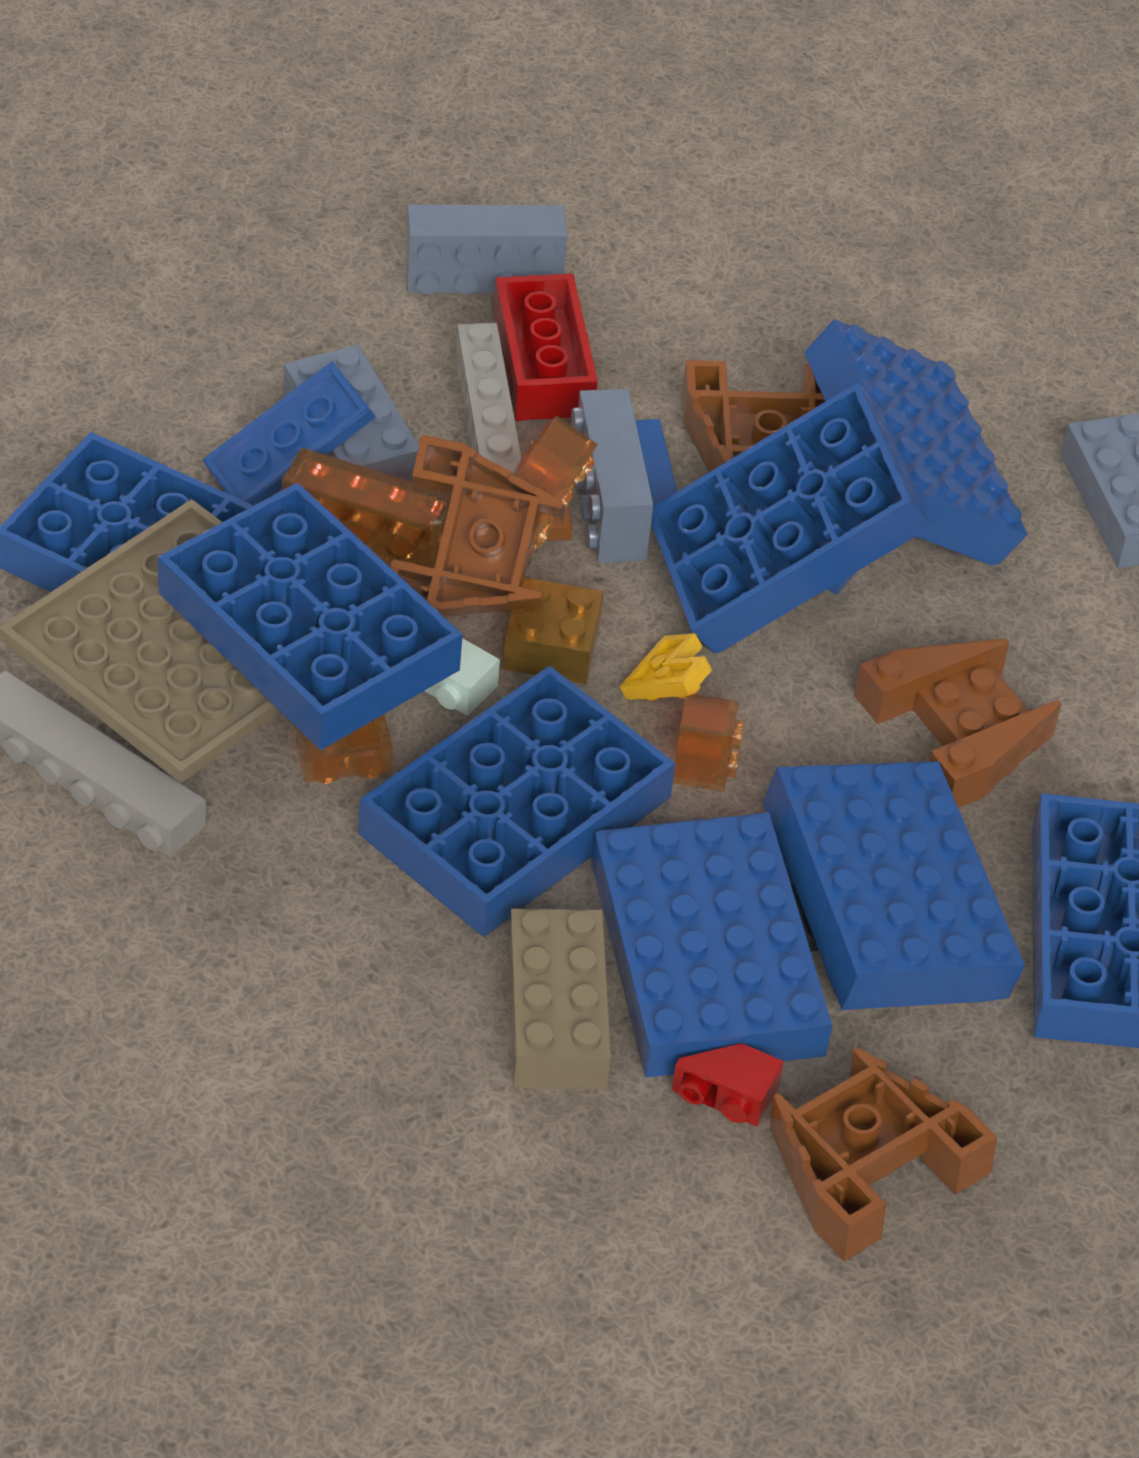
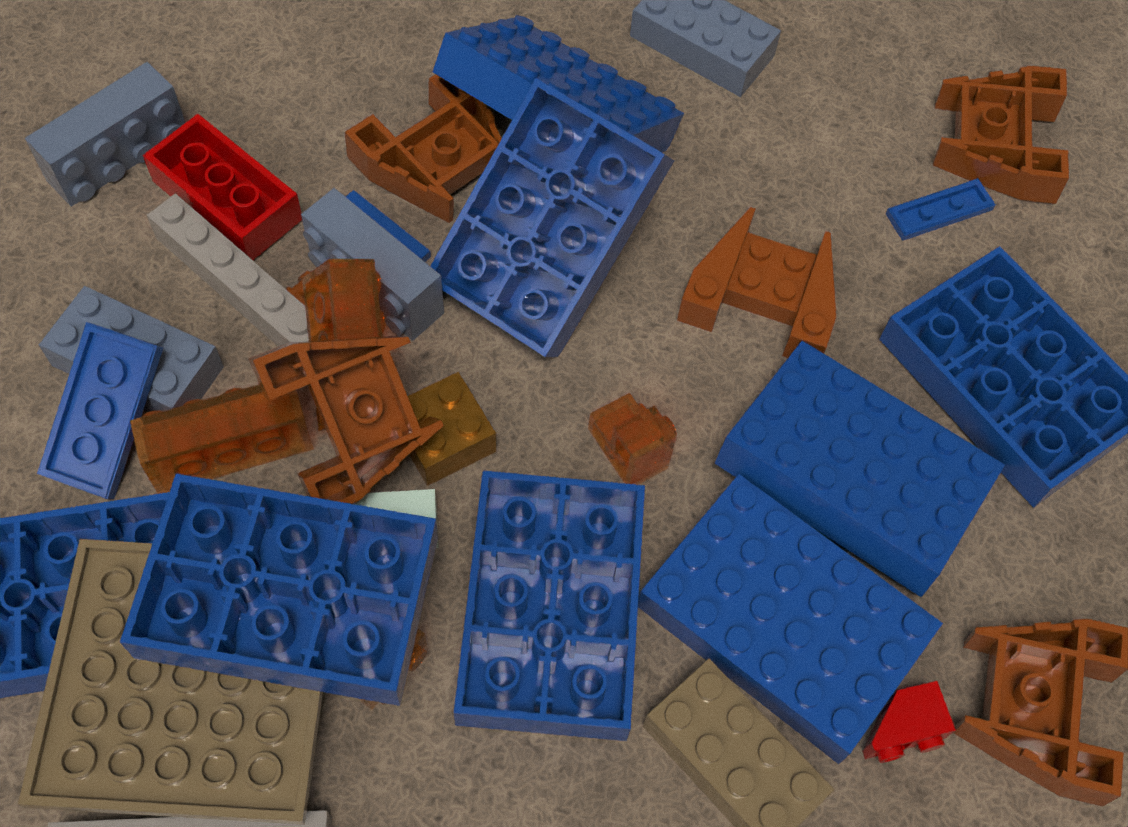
camera: 40 degrees left, 15 degrees up
(668, 670) = (553, 408): yellow plate -> none

